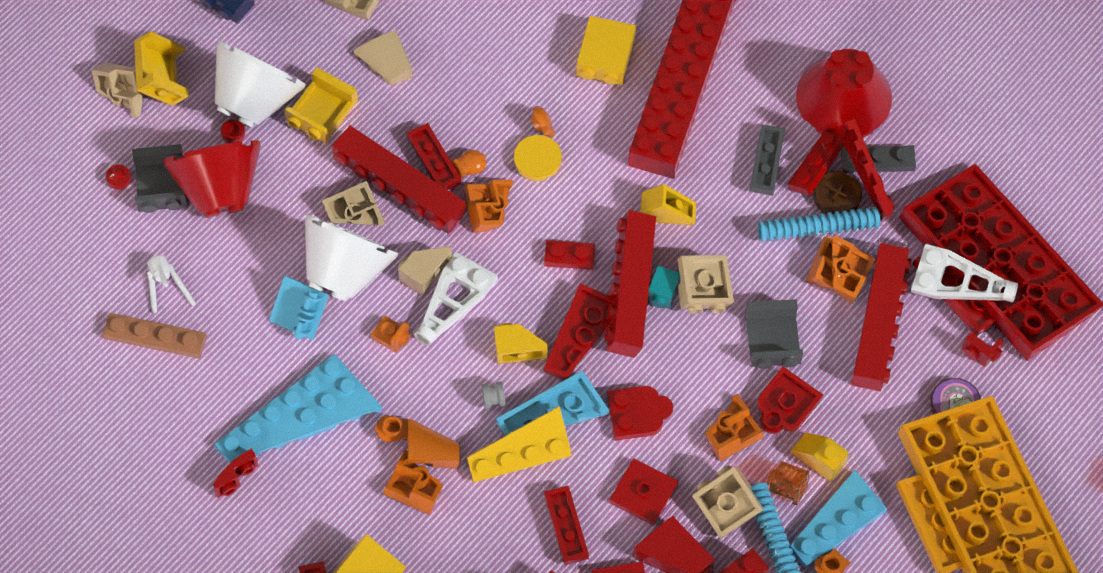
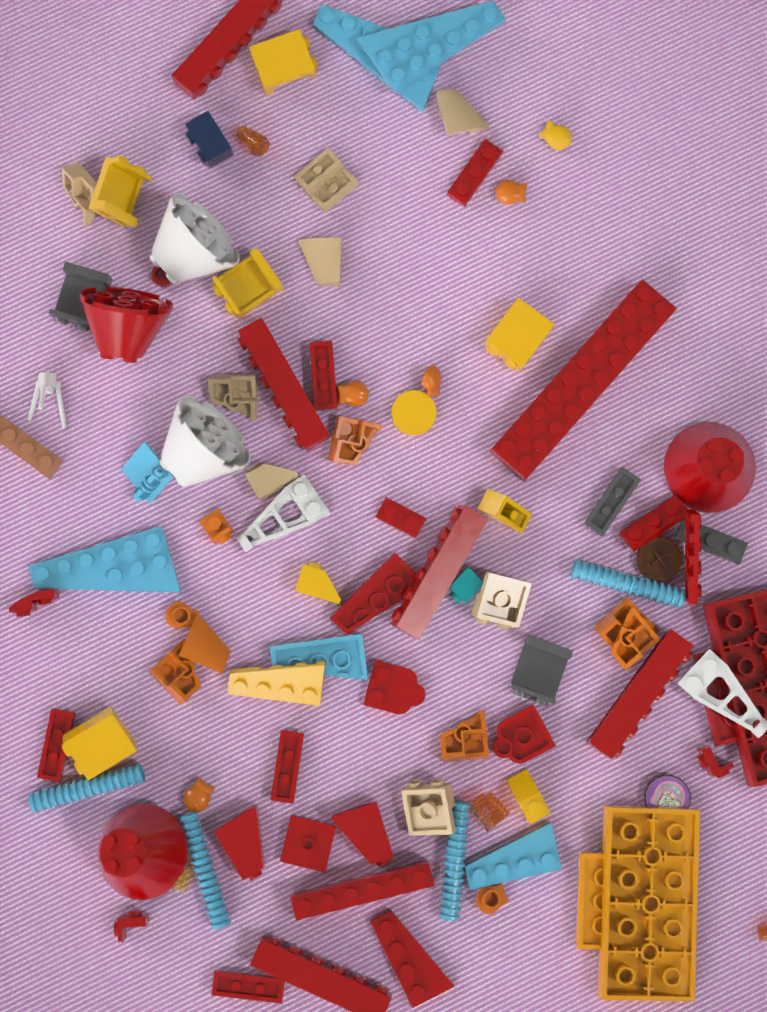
camera: 25 degrees right, 20 degrees up
(118, 177) = (47, 278): red tile -> none
(493, 395) = (277, 623): light grey wheel -> none
(643, 492) = (365, 763): red plate -> none

